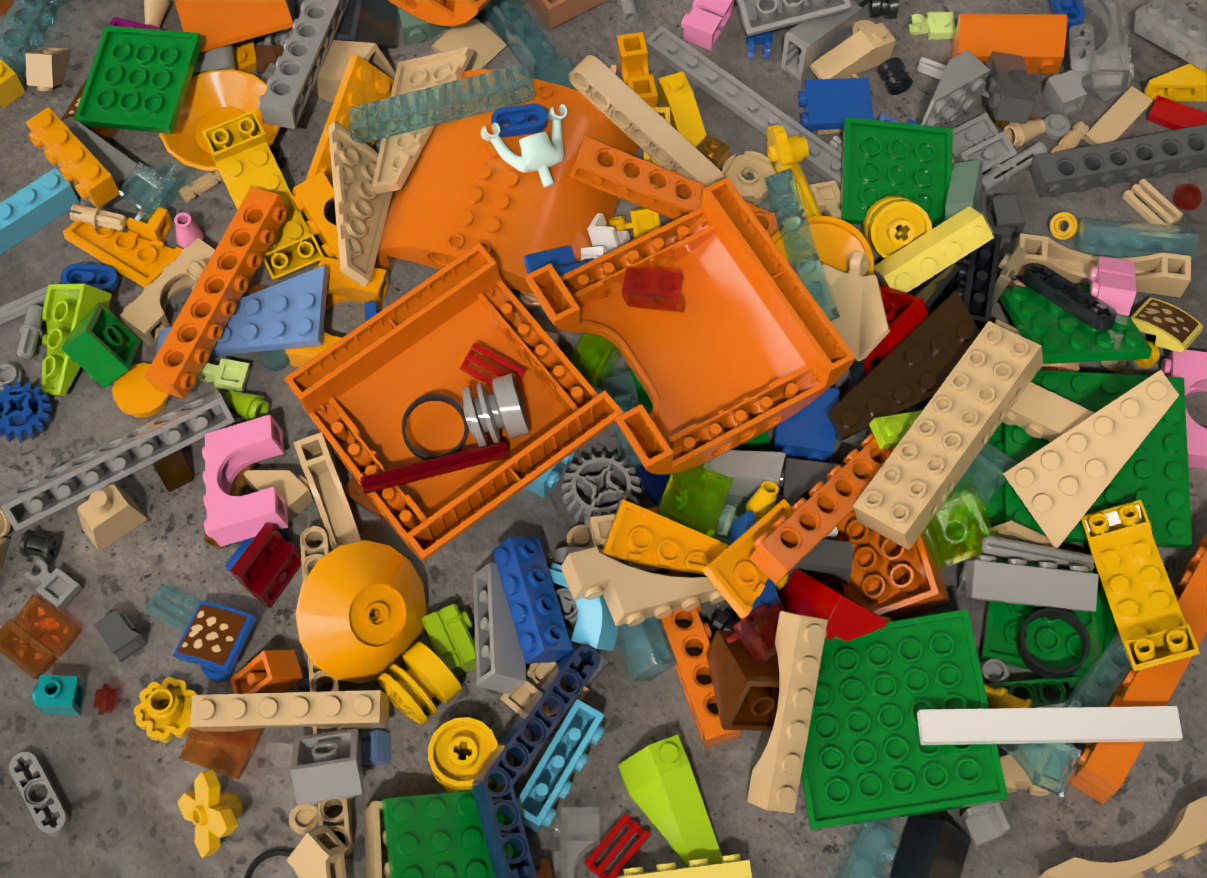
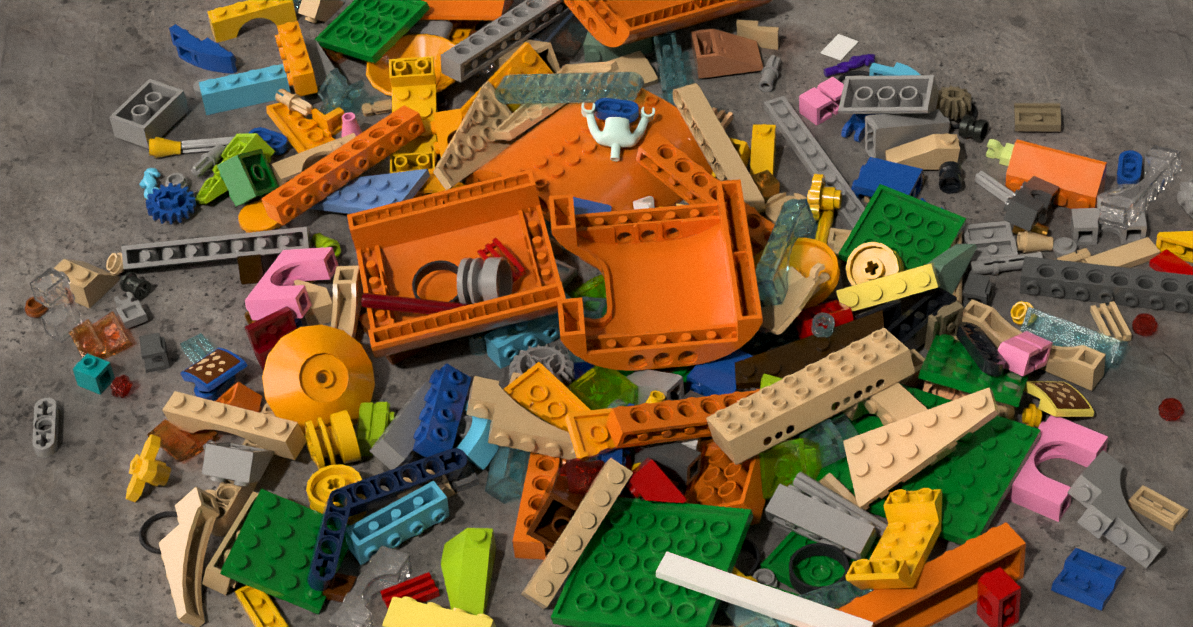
camera: 30 degrees right, 20 degrees down
(109, 516) = (190, 279): tan torso -> none
(165, 710) = (150, 404): yellow plant -> none
(226, 375) = (324, 223): yellowish green plate -> none
(375, 748) = (279, 476): medium blue slope -> none
(633, 65) = (745, 114): light orange arch -> none
(653, 289) = (647, 243): clear red bracket -> none
(914, 338) = (826, 319): none -> clear light blue bush
(957, 90) = (981, 193): light grey slope -> none

